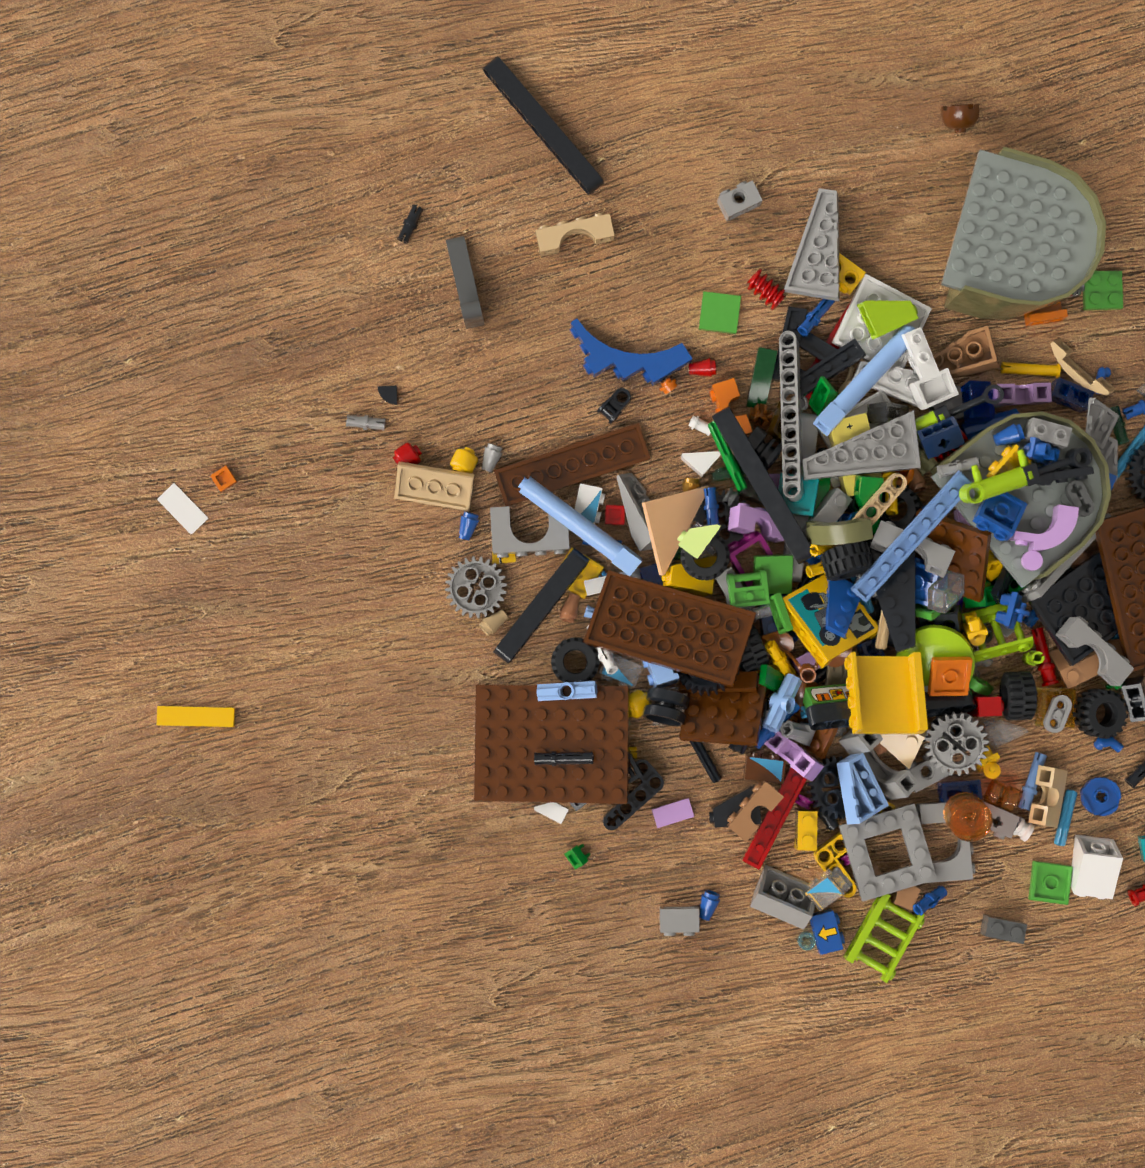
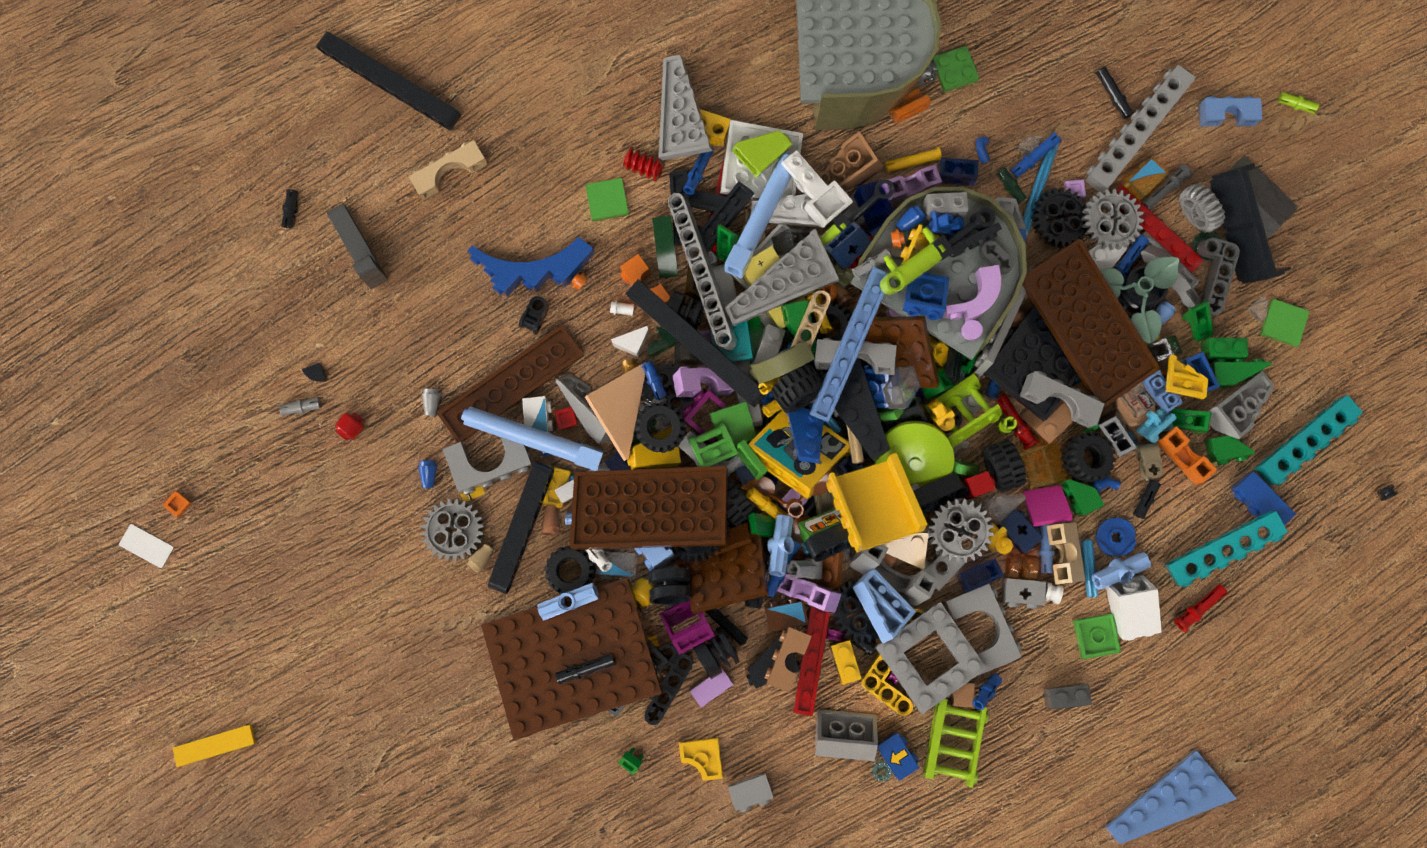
camera: 15 degrees left, 5 degrees down
(434, 486) = (383, 446): tan tile -> none
(464, 460) = (405, 413): yellow head -> none
(553, 811) = (594, 724): white sticker -> none
(646, 873) = (703, 755): none -> yellow tile
(668, 760) = (690, 636): none -> magenta window
(688, 782) = (715, 653): none -> black wheel
(697, 539) = (646, 412): yellowish green slope -> none
(703, 368) = (607, 254): red cone -> none
(709, 903) = (774, 765): blue cone -> none
(728, 457) = (660, 334): green axle -> none
(730, 496) = (669, 365): dark grey bush -> none
(731, 208) = (590, 101): light grey brick -> none
(760, 415) = (674, 280): reddish brown gear -> none
(828, 888) = (885, 712): clear brick -> none
(950, 676) = (932, 467): orange plate -> none
(967, 816) = (995, 597): clear orange wheel -> none
(991, 450) = (898, 238): none -> orange plate
(1015, 610) = (974, 386): blue hips -> none
(1021, 767) = (1030, 535): none -> dark blue brick
(1045, 747) = (1047, 505): none -> dark pink tile
(1058, 714) = (1049, 471): light grey plate -> none
(1062, 355) = (938, 135): tan slope -> none
(1080, 1051) = (1178, 795): none -> medium blue wing
(1082, 749) = (1083, 497): none -> green slope
(1094, 829) = (1121, 570): none -> light blue piece
(1100, 421) = (993, 184): light grey wing -> none

